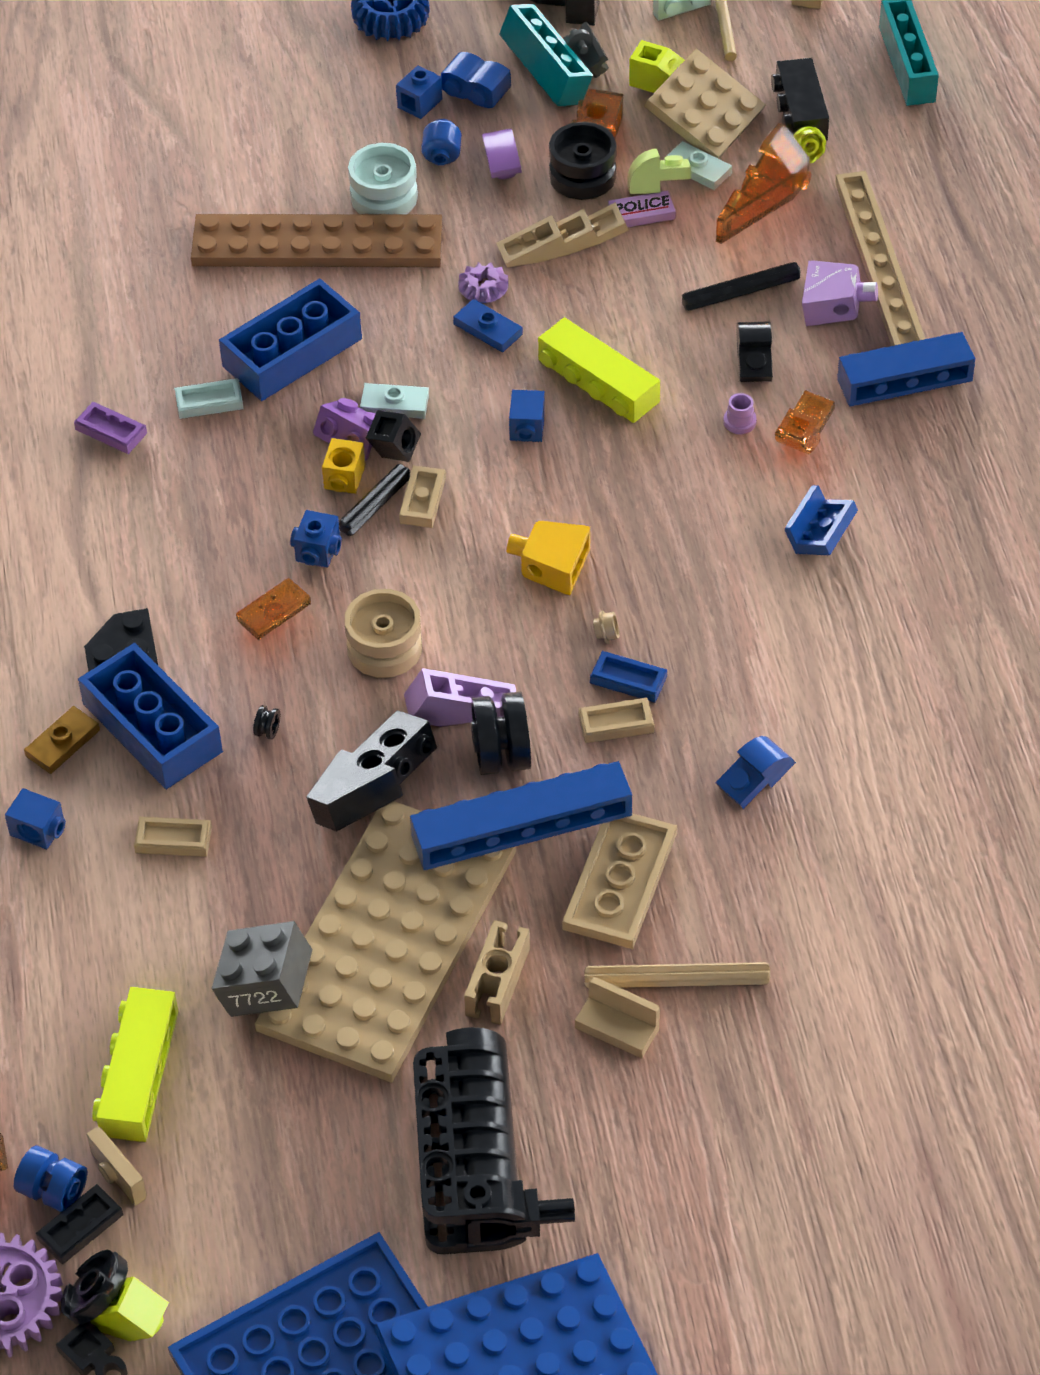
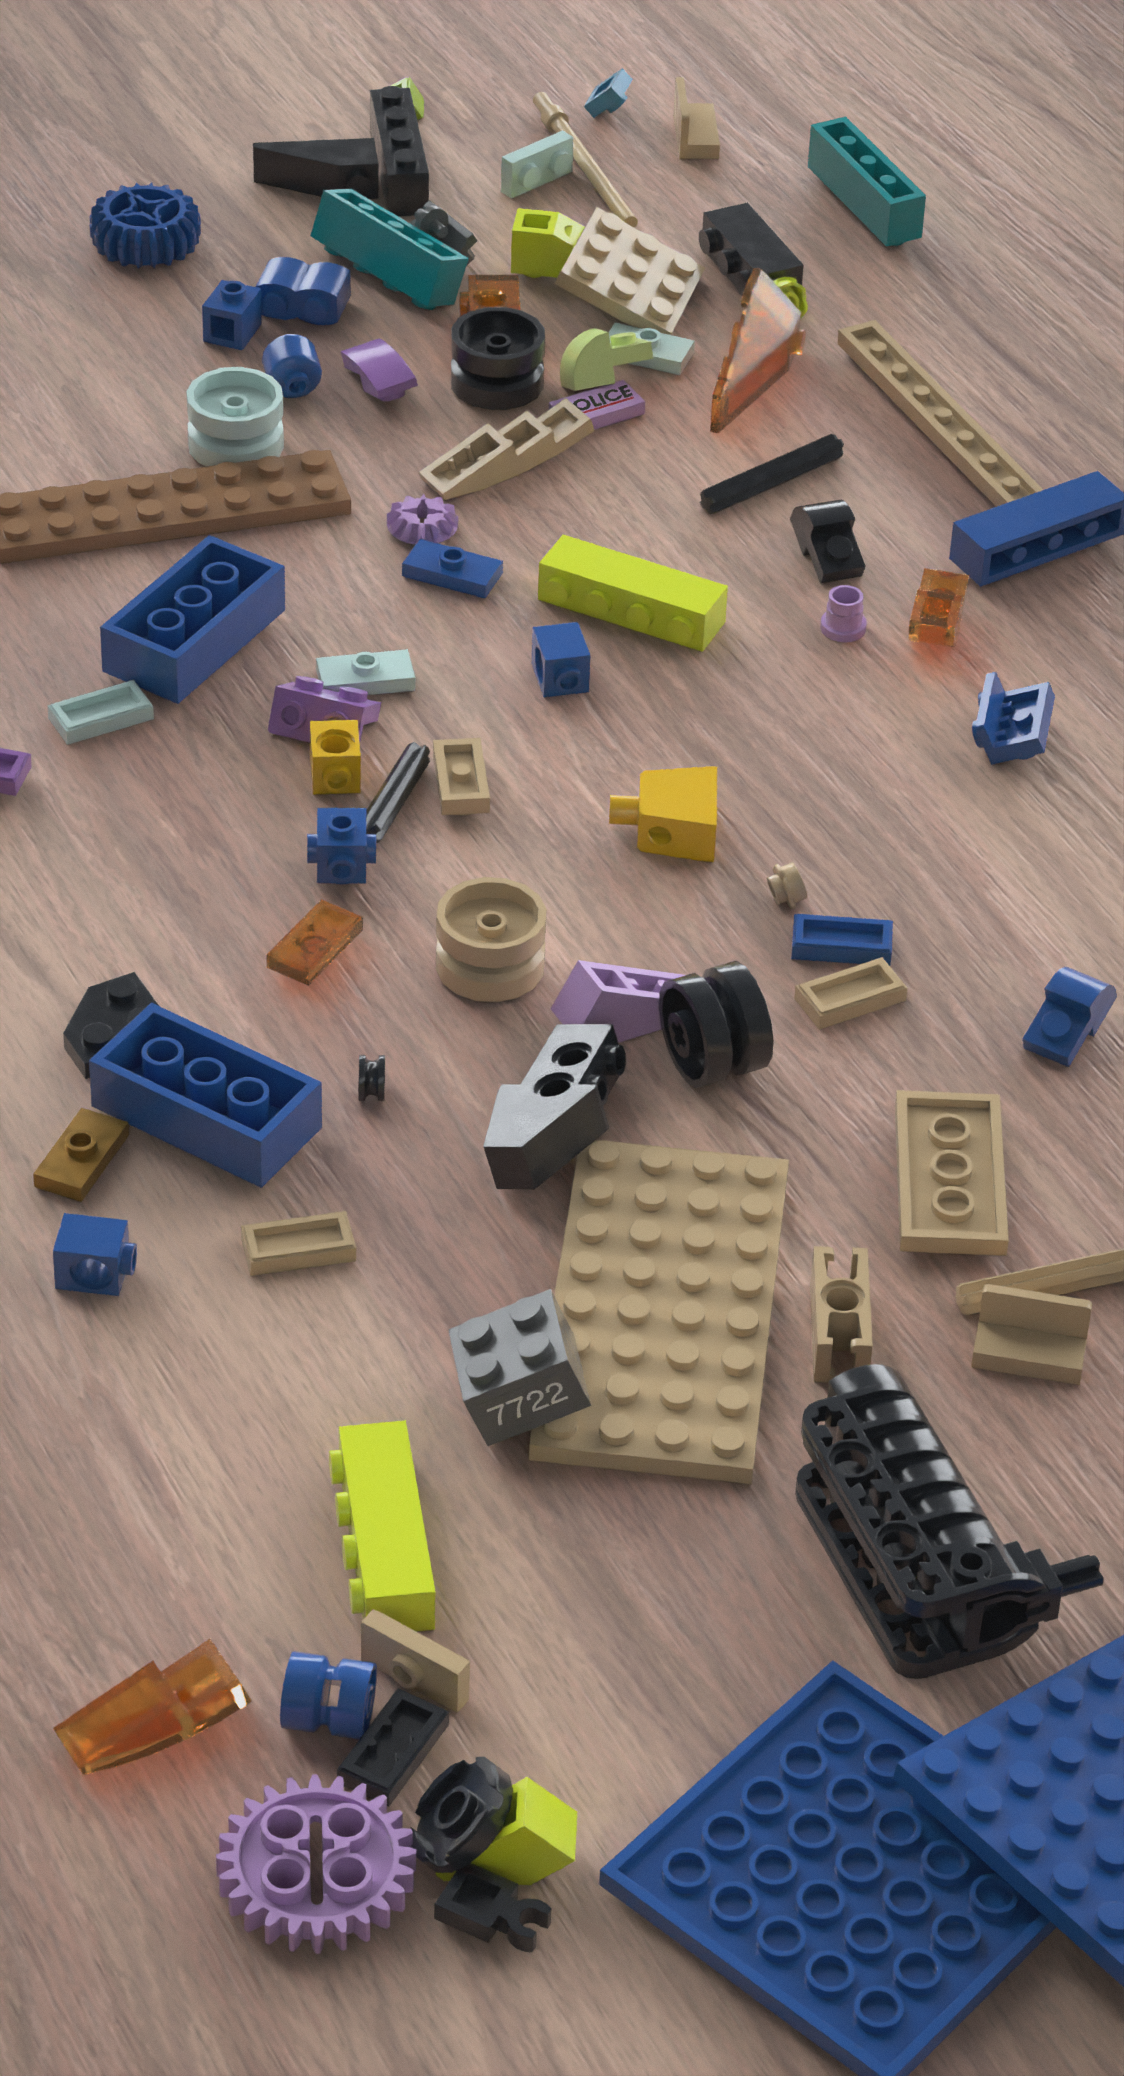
camera: 20 degrees left, 10 degrees down
(393, 435) = (392, 707): black brick -> none
(521, 815) = (790, 1115): blue brick -> none
(834, 292) = (904, 458): lavender torso -> none

